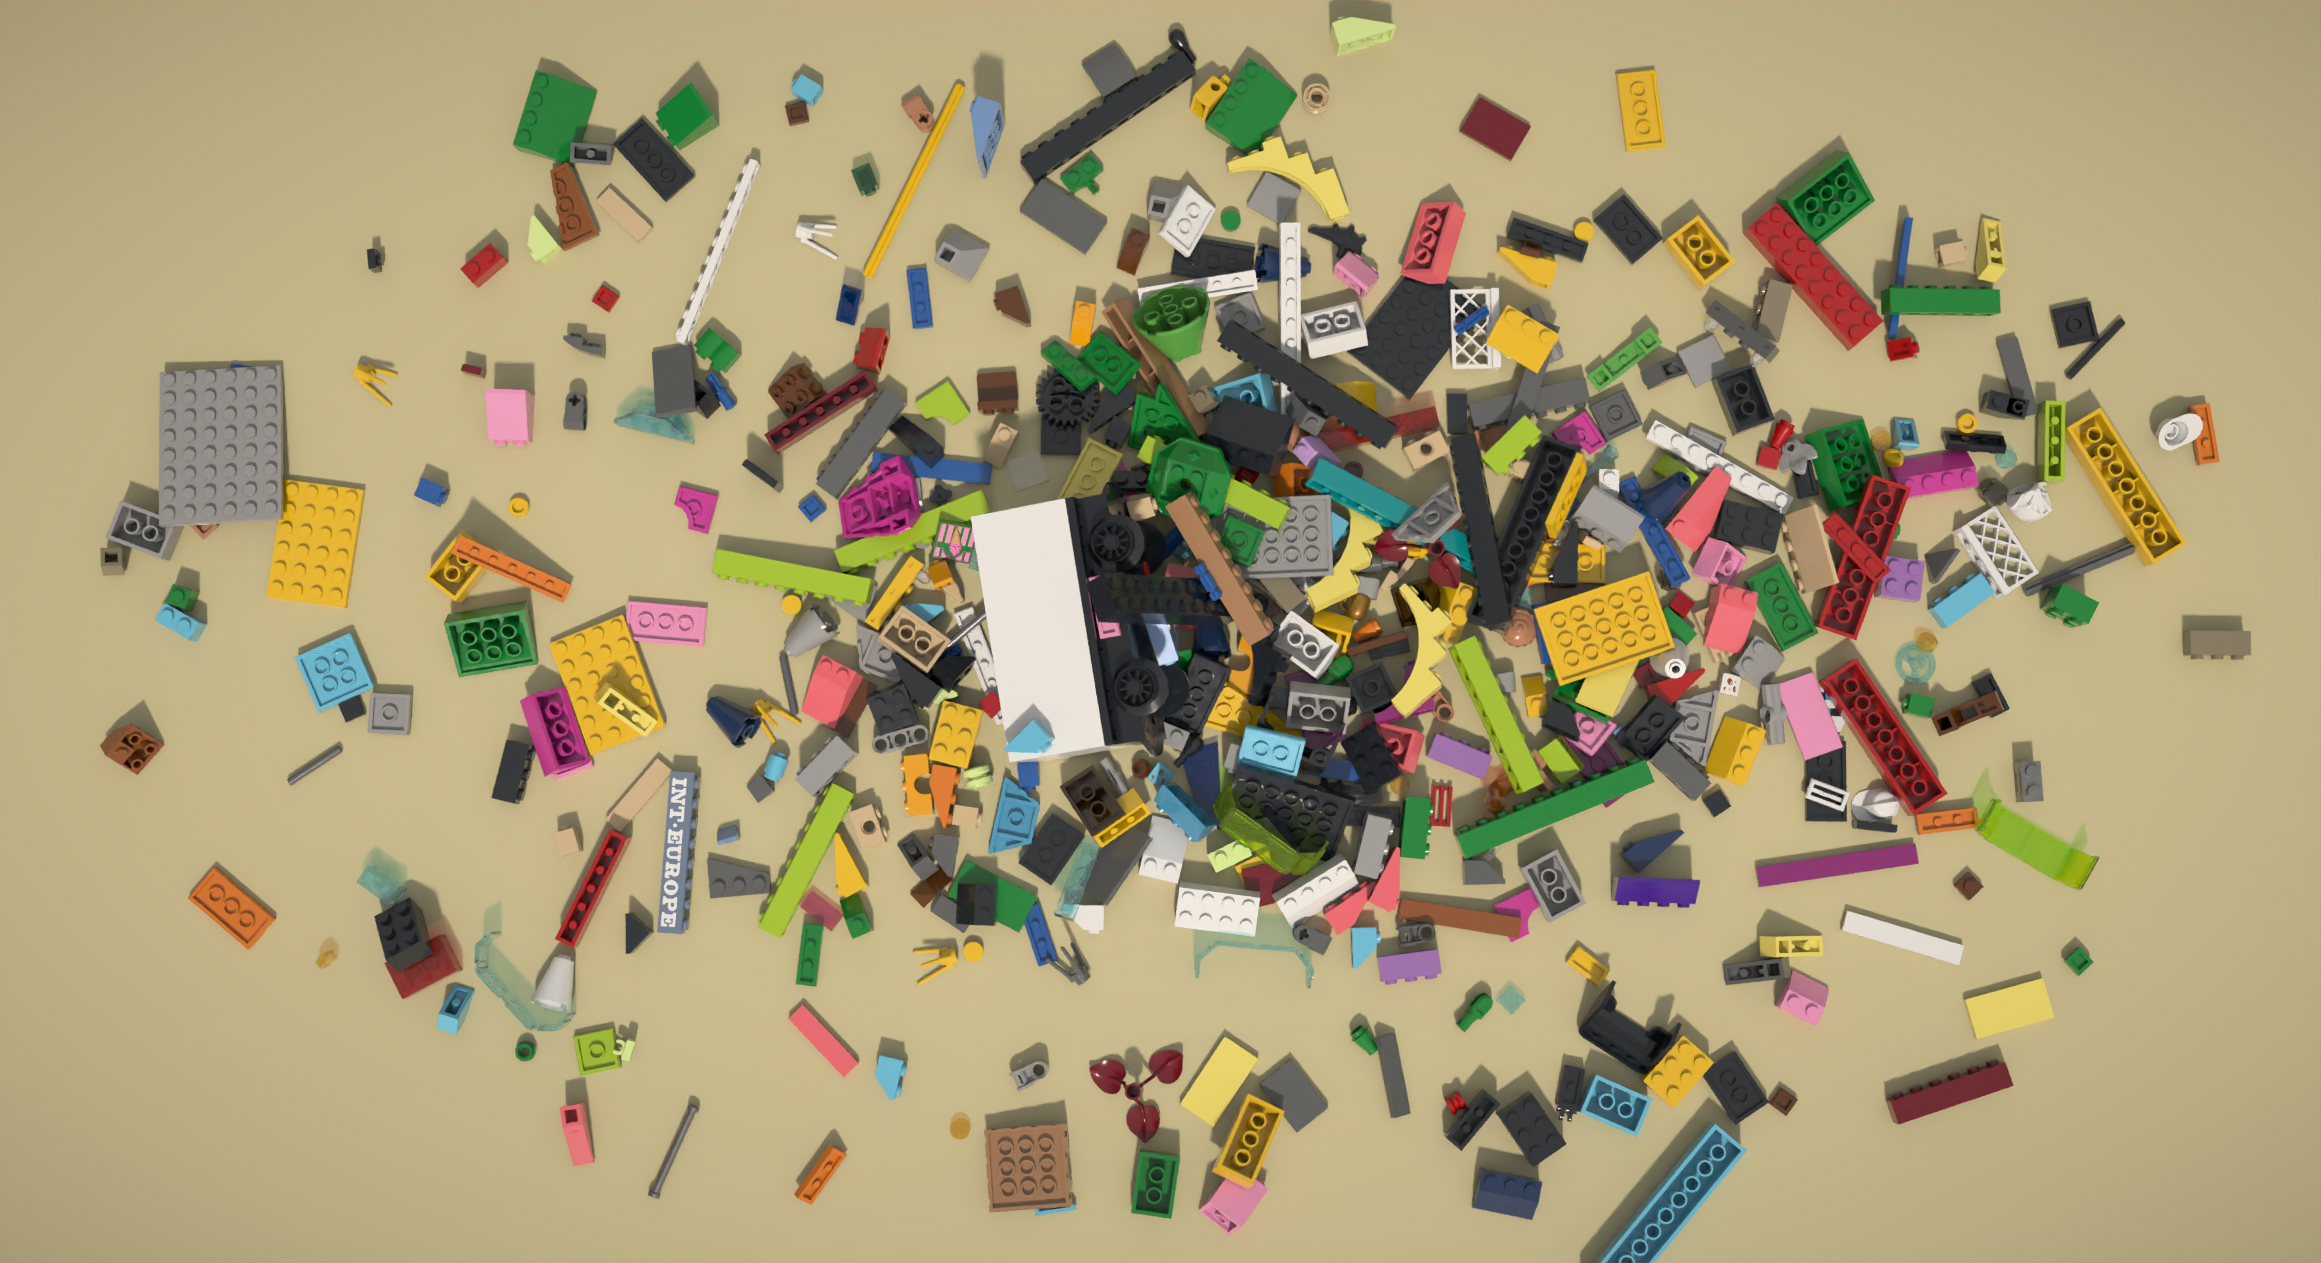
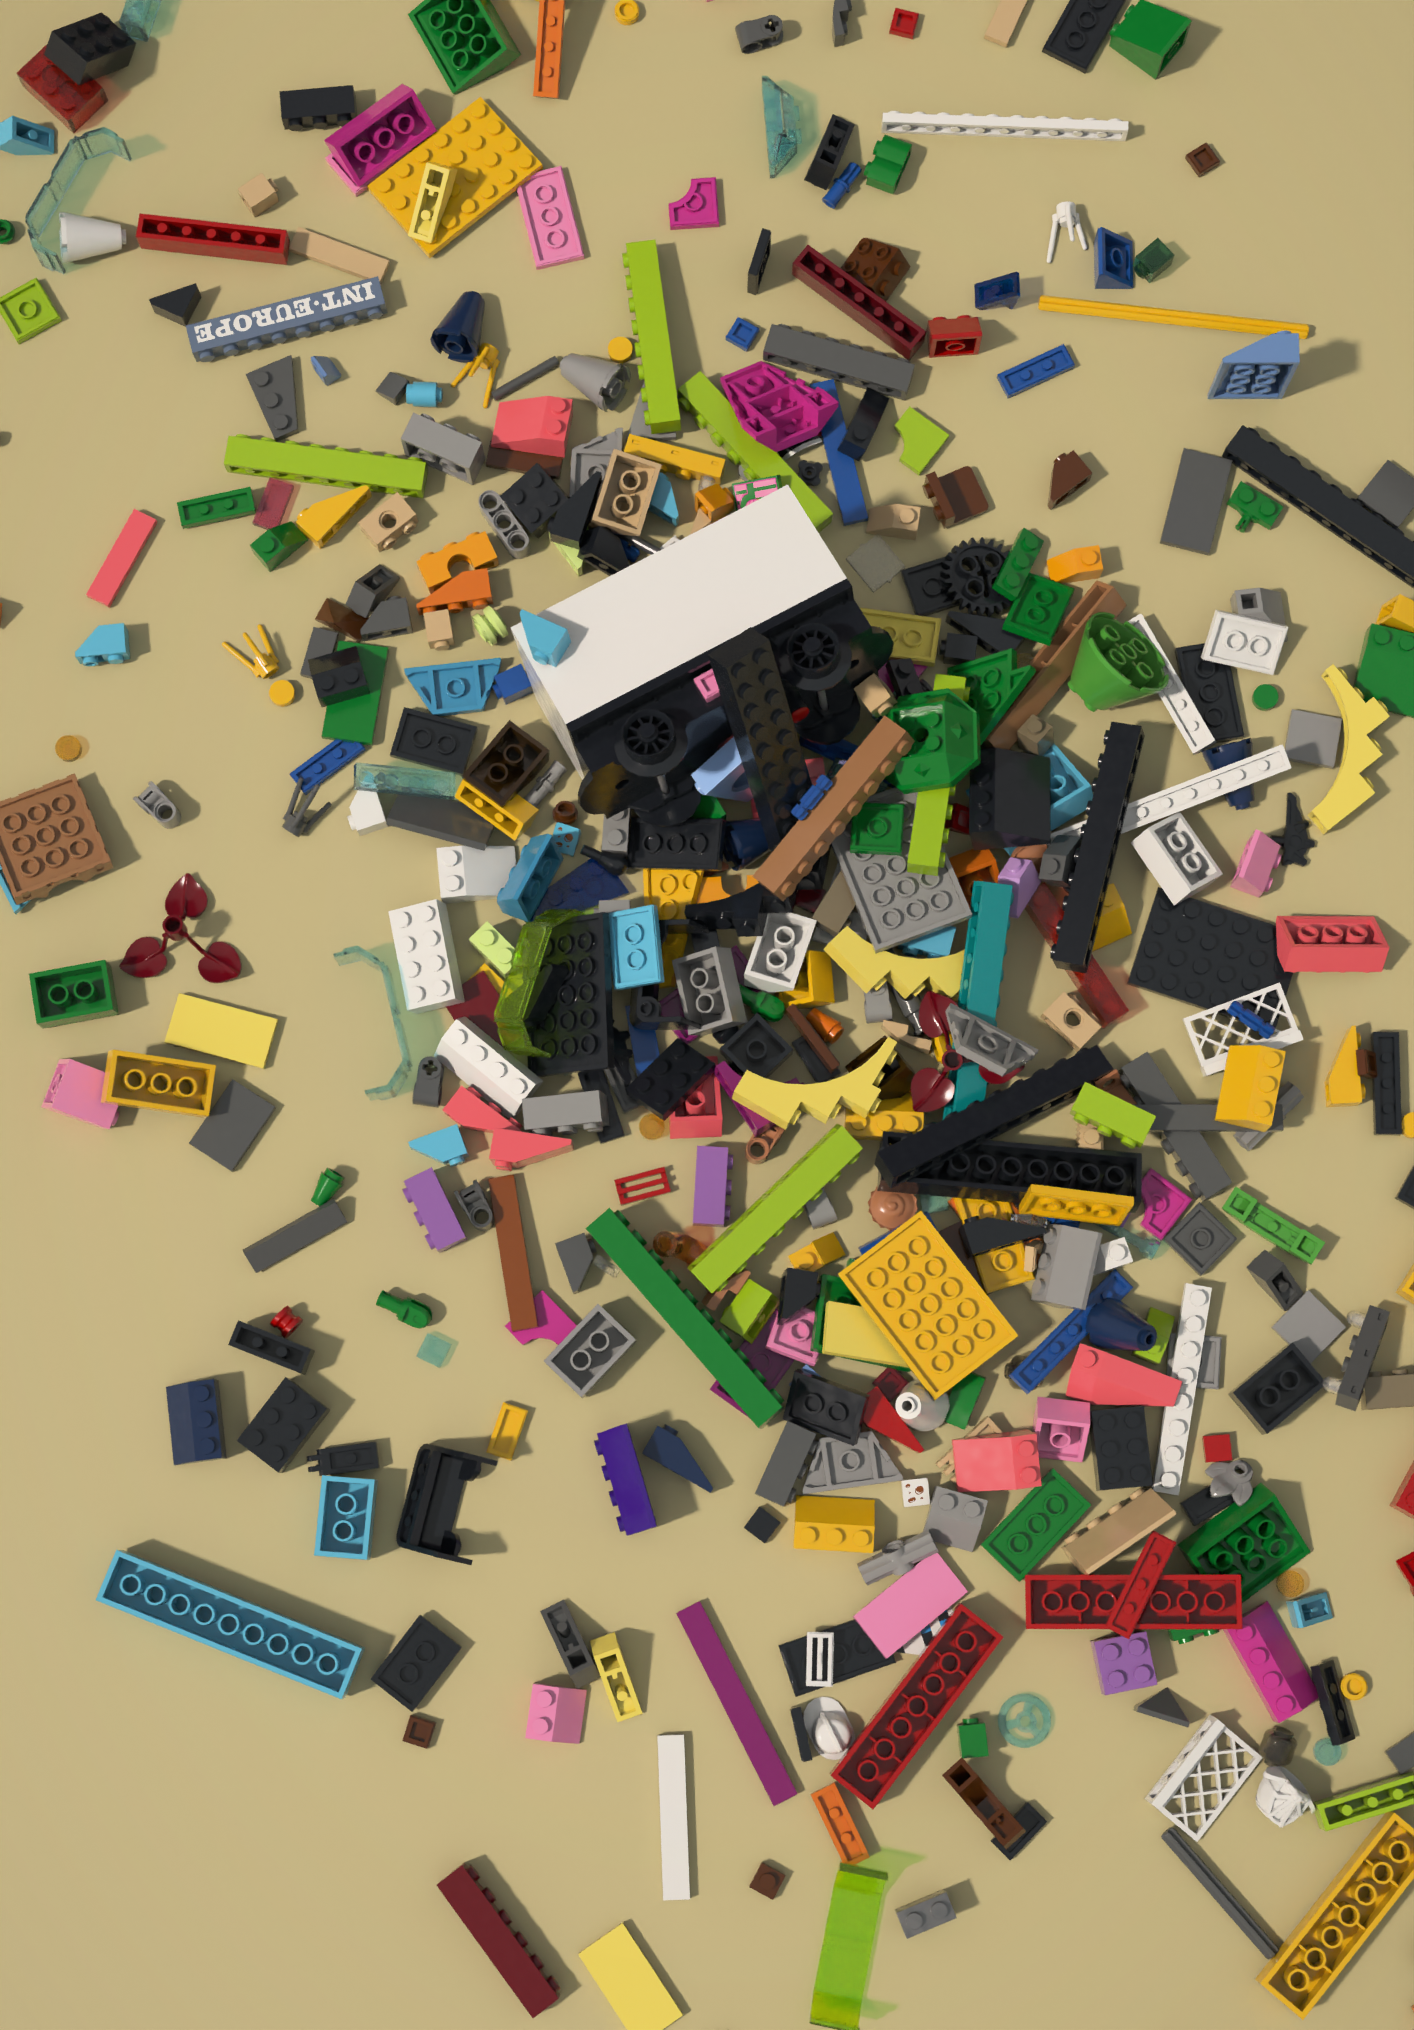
camera: 70 degrees right, 5 degrees down
(626, 1050) = (40, 341): yellowish green tile -> none
(674, 381) = (833, 125): dark grey tile -> none
(806, 90) = (1233, 159): medium azure brick -> none
(854, 210) = (1112, 261): none -> blue slope
(917, 111) = (1257, 293): nougat piece -> none
(956, 734) = (529, 583): yellow brick -> none
(961, 255) = (1105, 398): light grey slope -> none
(1133, 251) = (1185, 595): reddish brown slope -> none
(1243, 311) = (1159, 748): light grey tile -> none
(1354, 468) = (1015, 943): reddish brown plate -> none
(1357, 606) = (850, 1002): pearl gold piece -> none
(1415, 827) = (603, 1159): green brick -> none
(1457, 414) = (1130, 1045): black tile -> none
(1677, 1071) = (413, 1582): yellow brick -> none
(1681, 605) = (994, 1399): red slope -> none
(1781, 433) = (1253, 1453): red cone -> none
(1893, 458) = (1274, 1605): yellow tile -> none
(1927, 642) = (1056, 1725): clear yellow tile -> none
(1960, 600) = (1126, 1750): medium azure brick -> none
(2004, 405) = (1393, 1725): black slope -> none
(2069, 606) = (1167, 1892): green brick -> none

